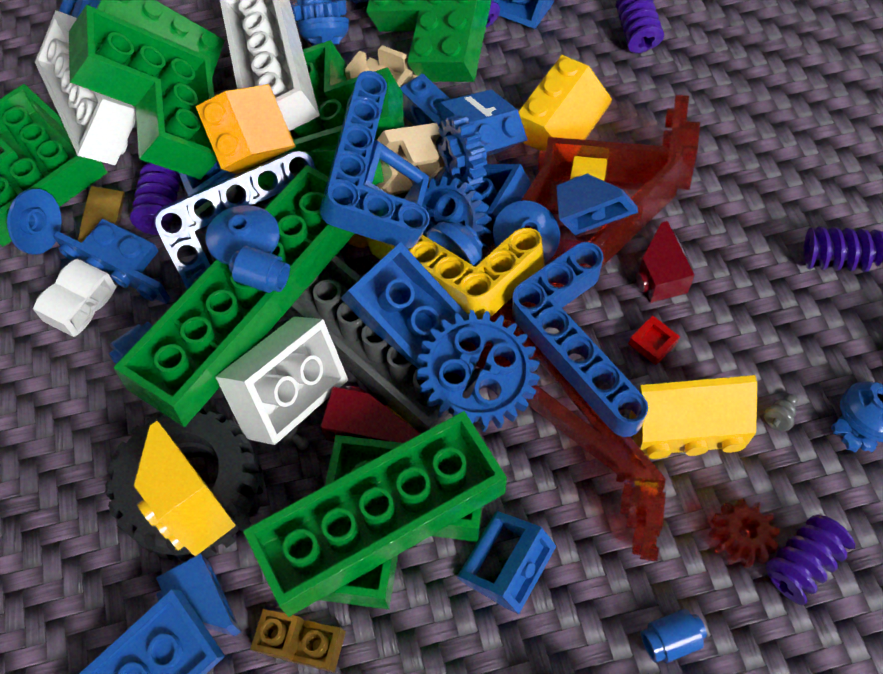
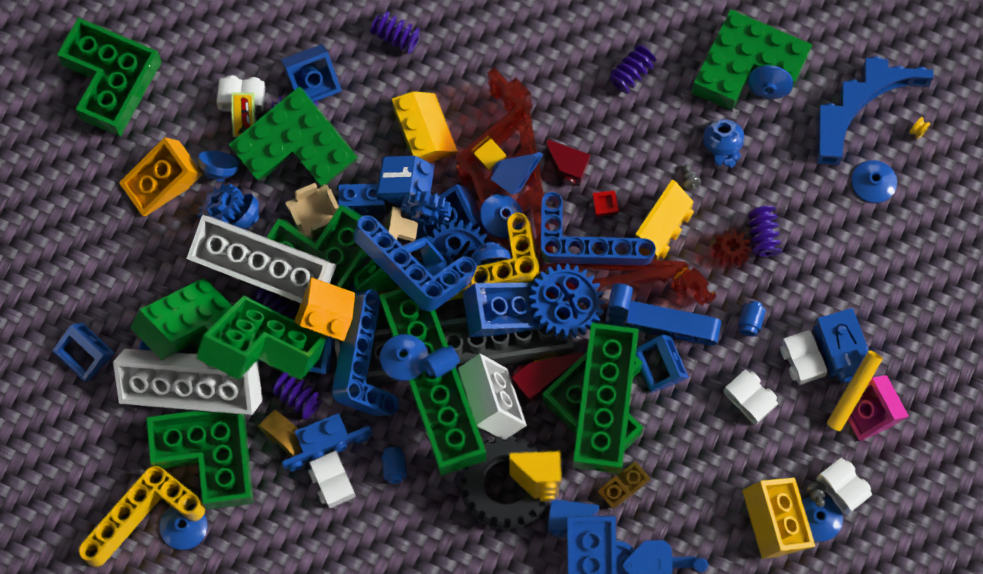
camera: 55 degrees left, 10 degrees up
(34, 221) = (261, 472): blue dish -> none
(531, 453) = (660, 320): none -> blue beam

